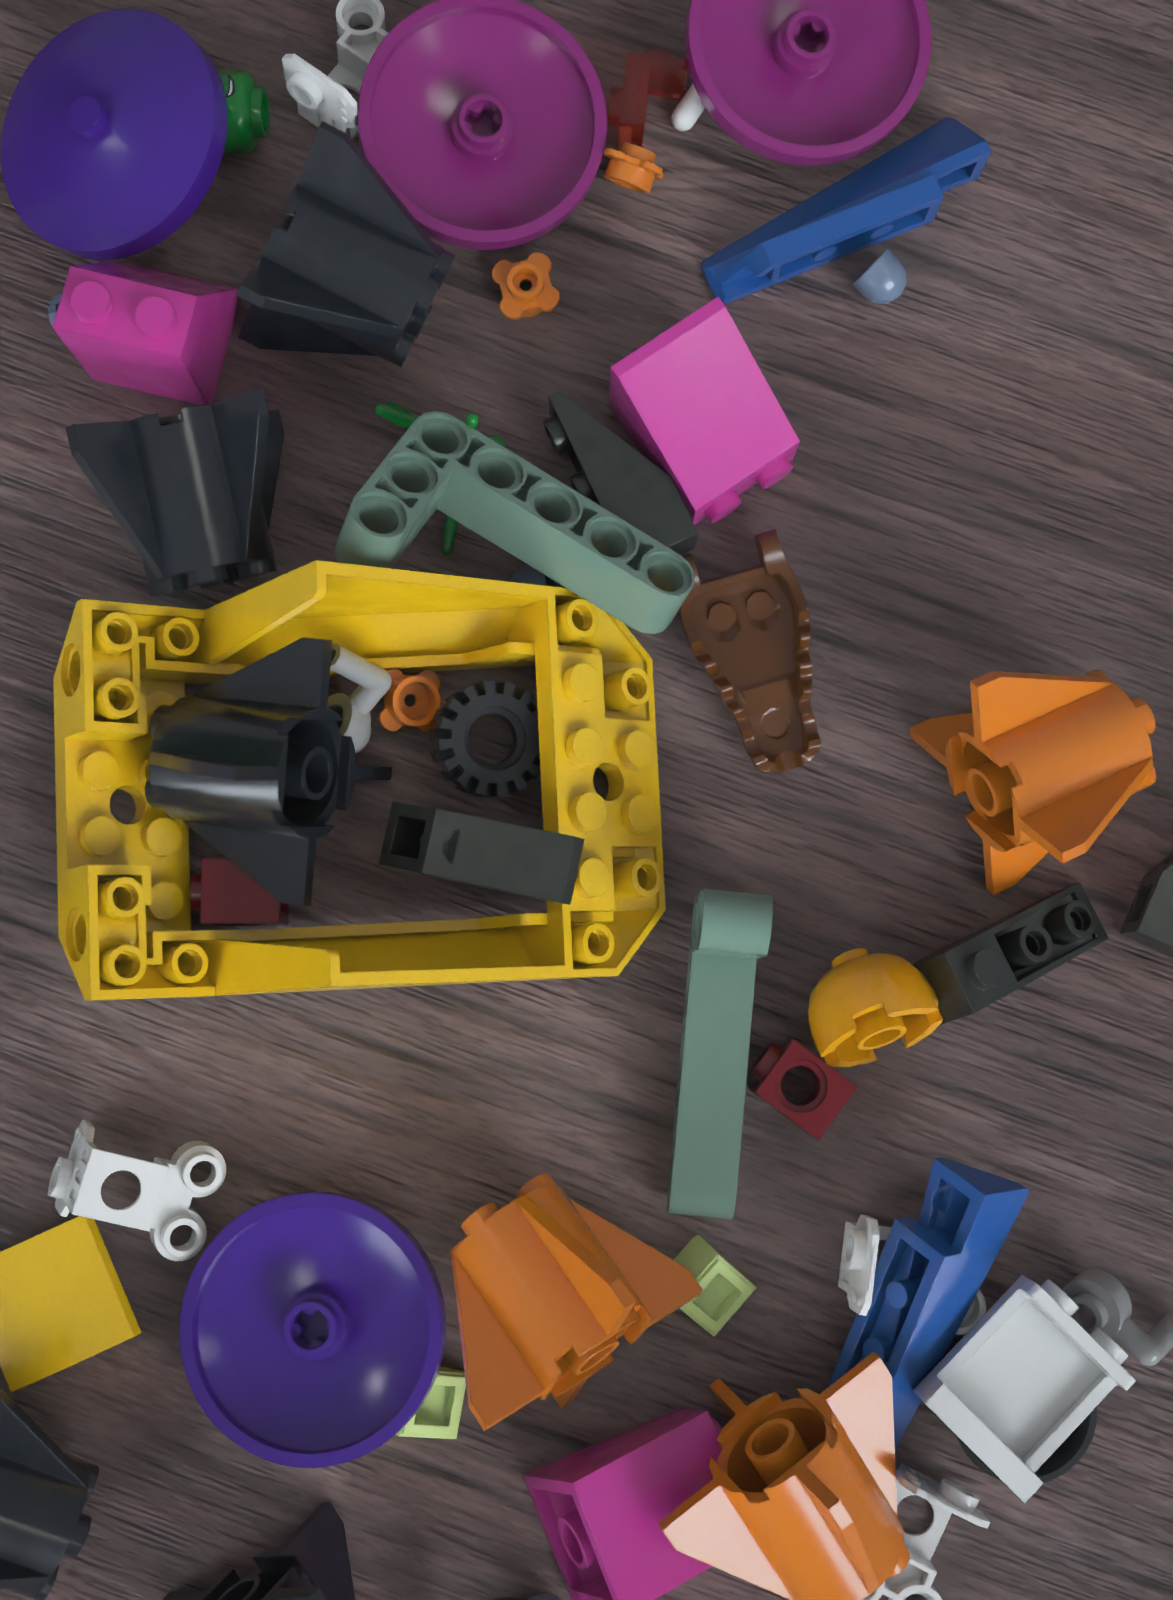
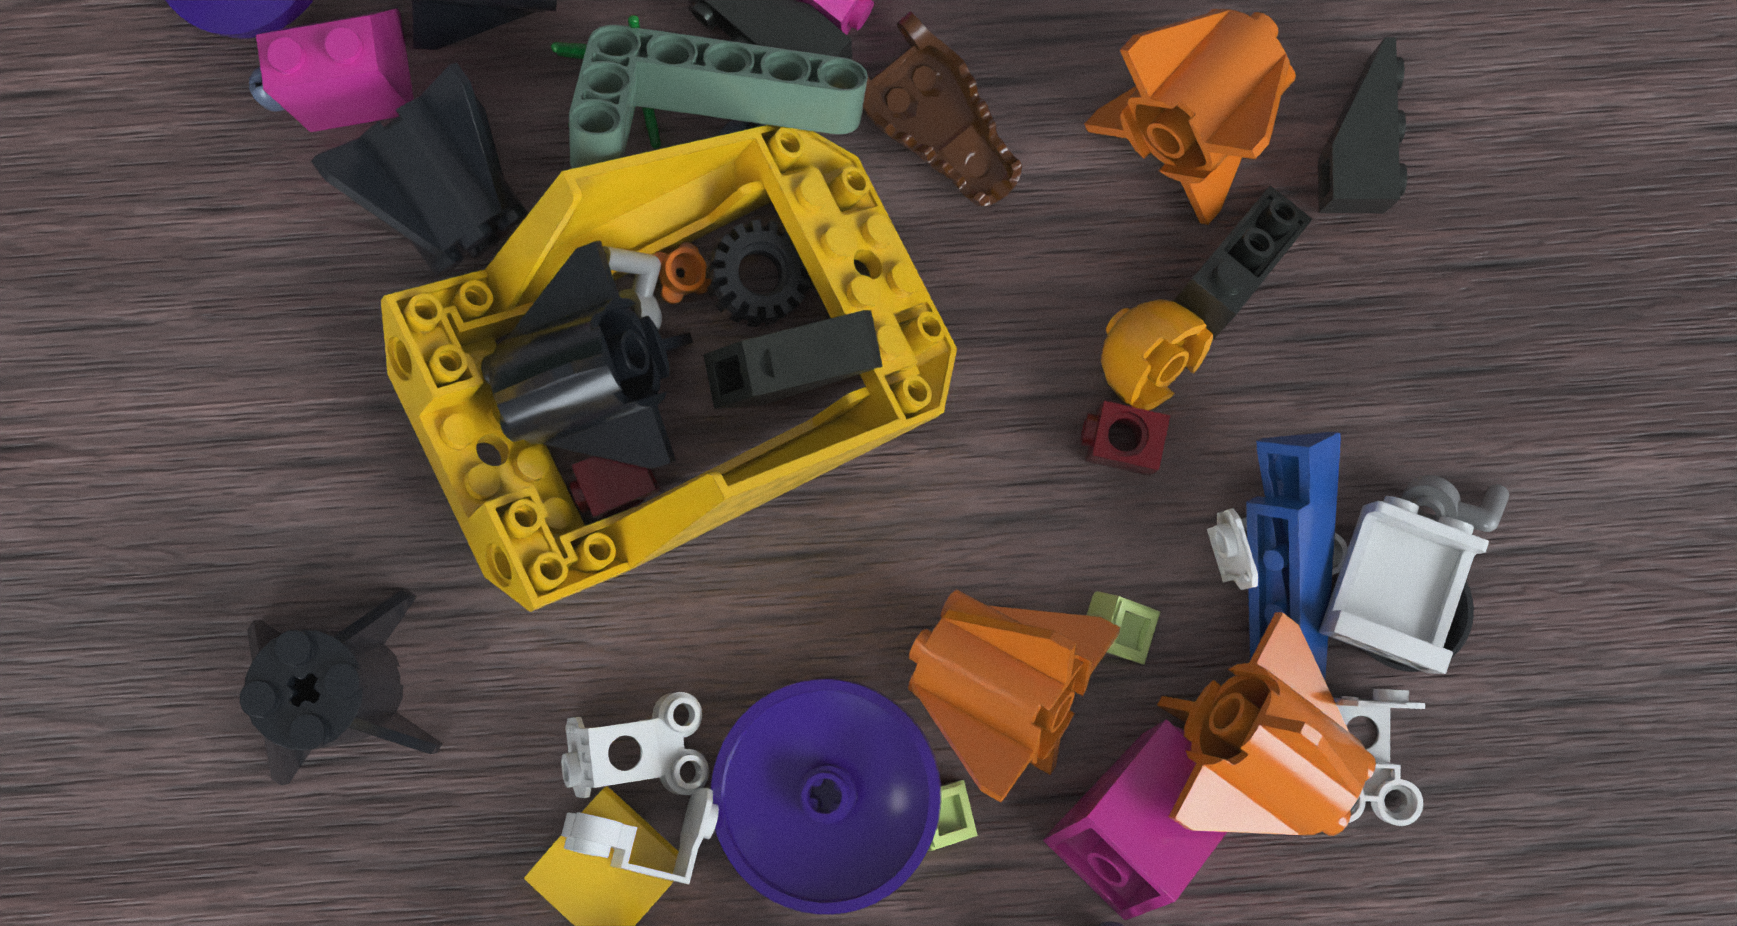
camera: 20 degrees left, 0 degrees up
(50, 1266) = (598, 835): none -> white piece
(725, 942) = (1014, 344): sand green beam -> none

